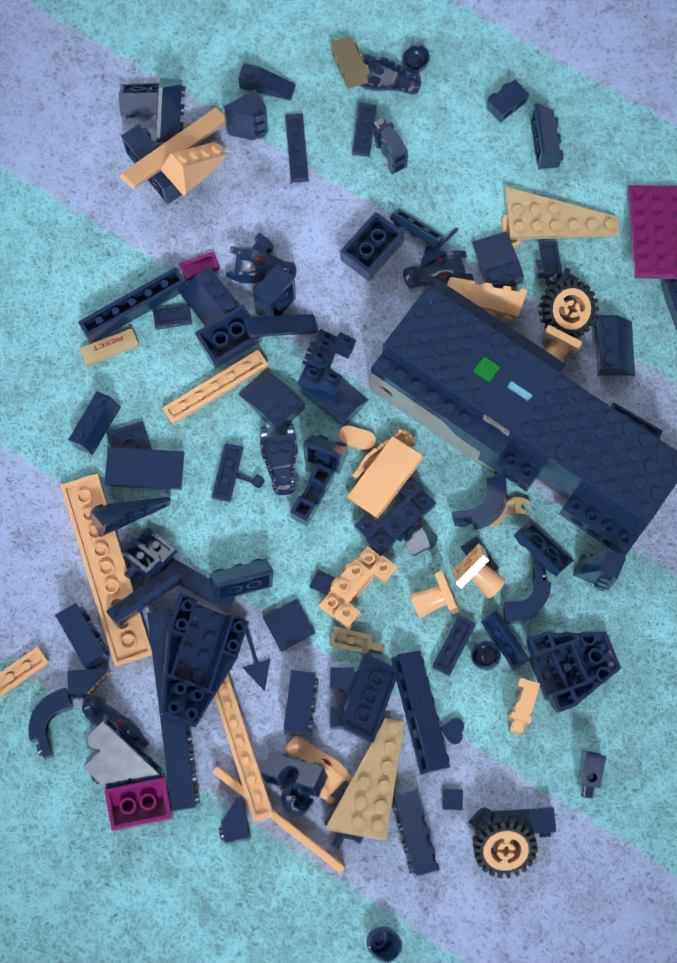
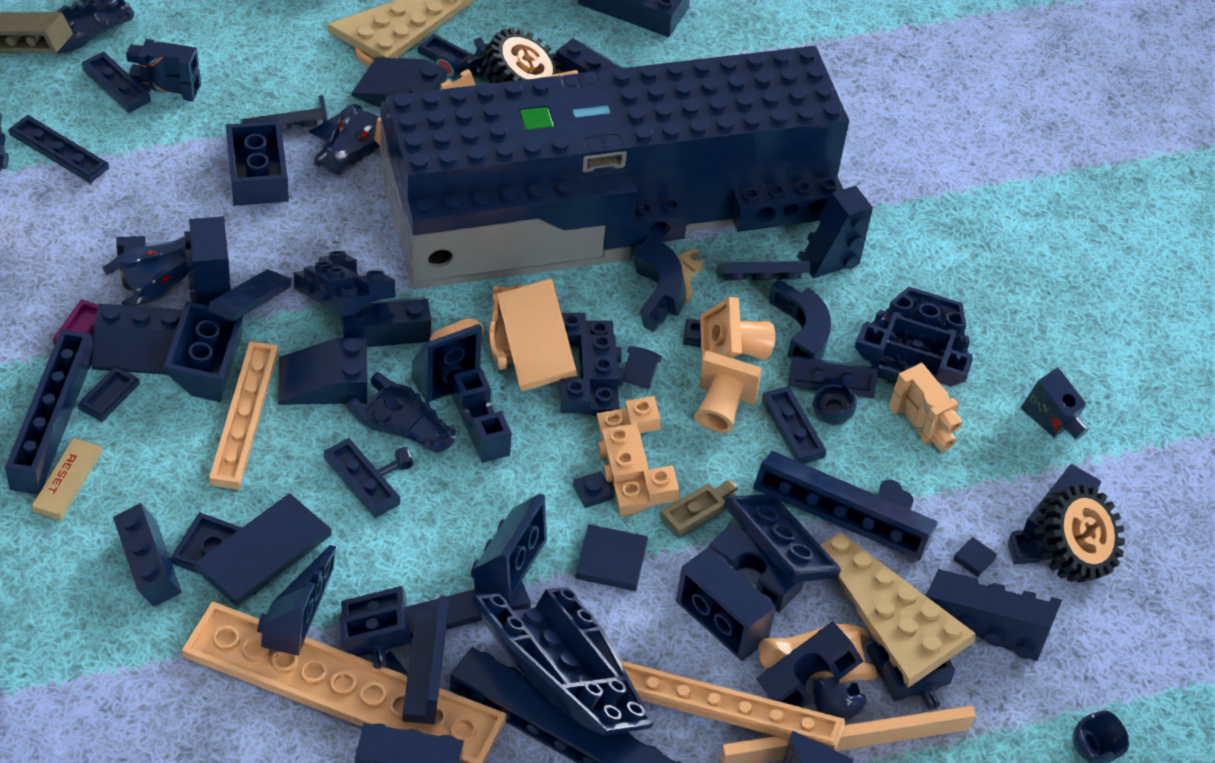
camera: 55 degrees left, 25 degrees down
(259, 670) = (636, 628): dark blue piece -> none

